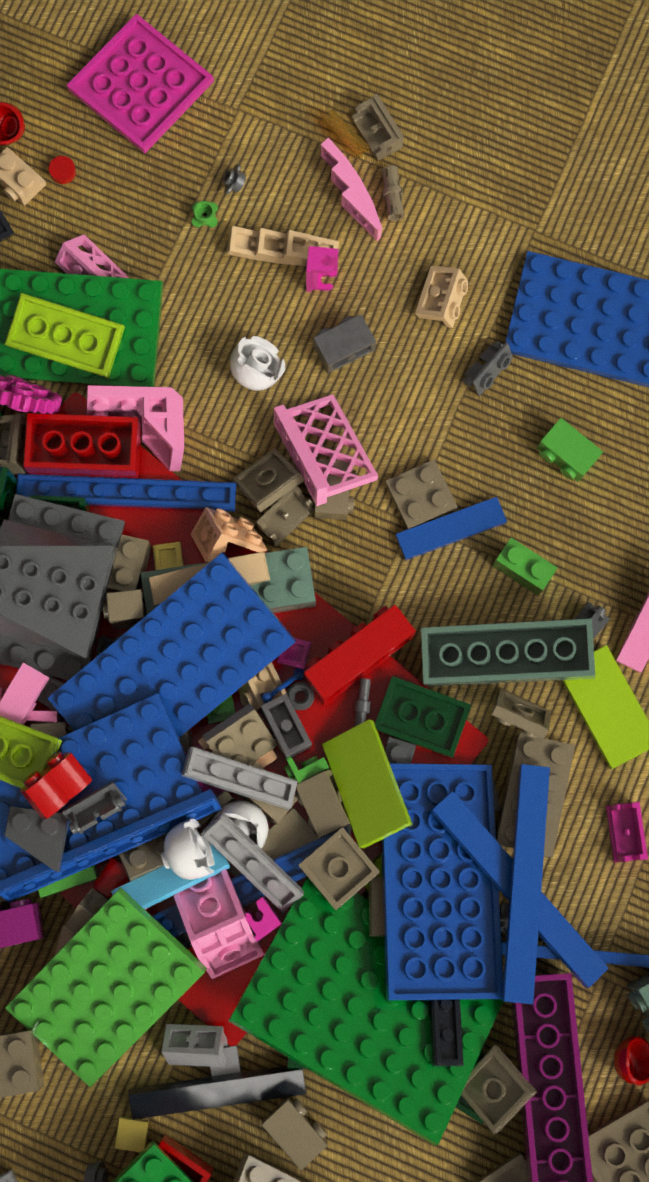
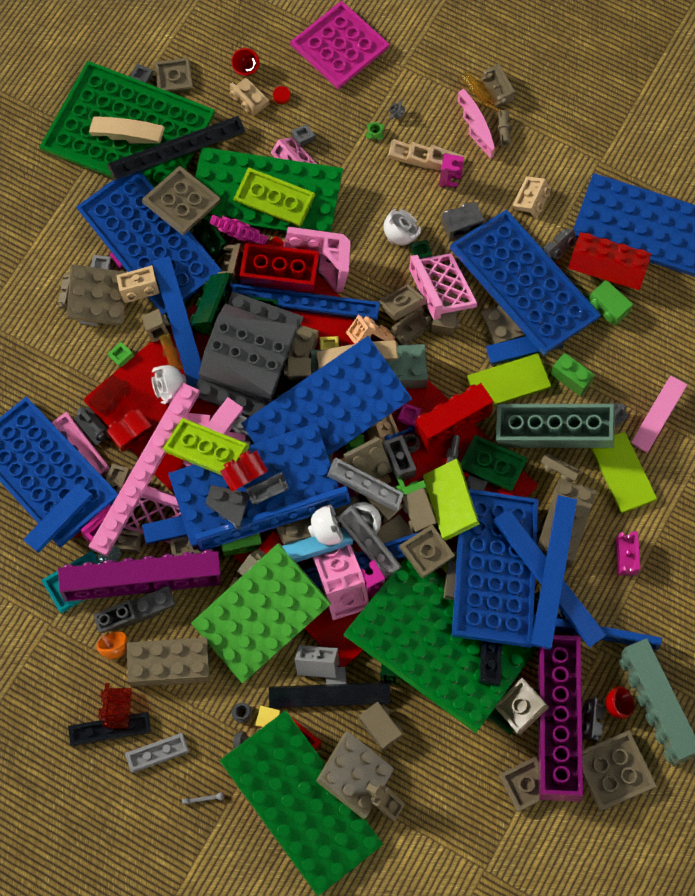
camera: 10 degrees right, 10 degrees down
(87, 1137) = (241, 706): none -> dark grey plate
(99, 231) = (303, 135): none -> dark grey plate
(288, 394) = (421, 249): none -> dark green plate
(436, 582) = (513, 379): none -> lime tile
(443, 430) = (525, 282): none -> blue plate
(564, 388) = (609, 260): none -> red brick
(595, 1074) = (593, 710): none -> dark grey hinge

